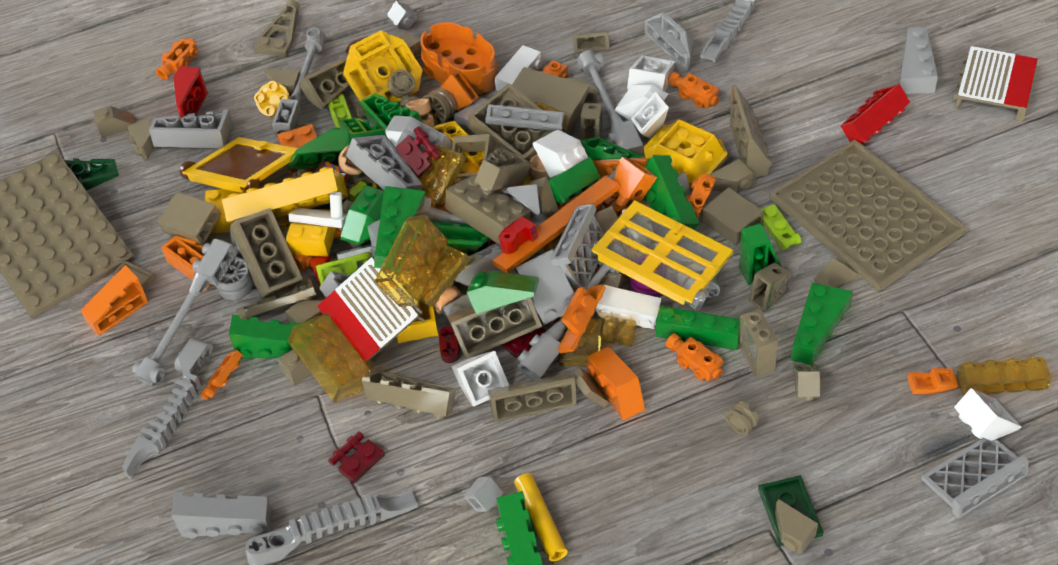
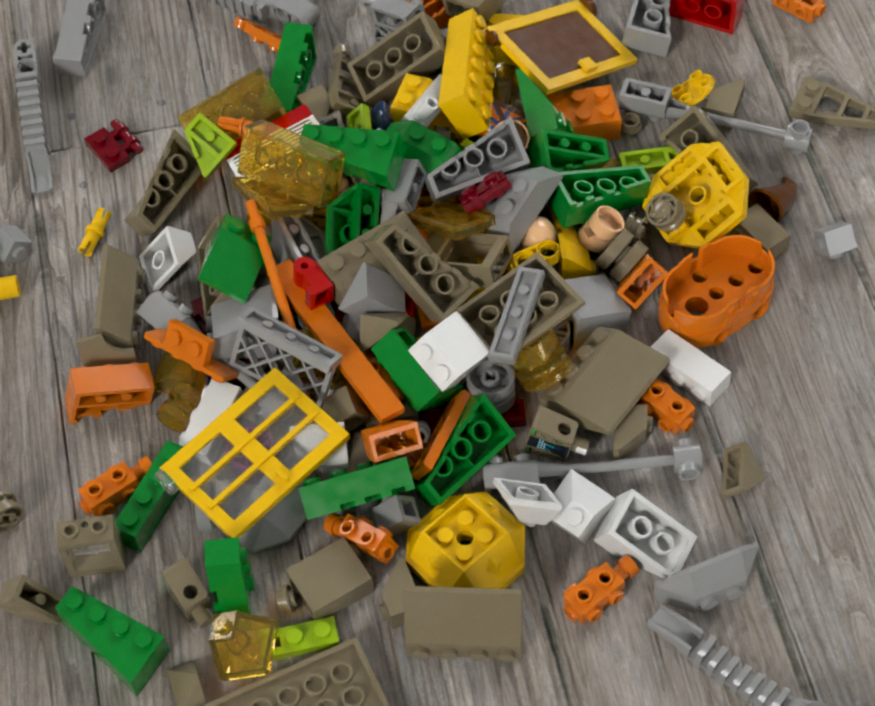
camera: 100 degrees right, 5 degrees up
(322, 257) = (381, 116): none -> dark blue hair
(351, 334) = (232, 124): none -> orange axle
(370, 358) = (208, 144): none -> lime wing
(456, 440) = (94, 232): none -> yellow pin
(476, 270) = (258, 227): none -> orange bar
(799, 244) = (242, 644): none -> clear yellow slope

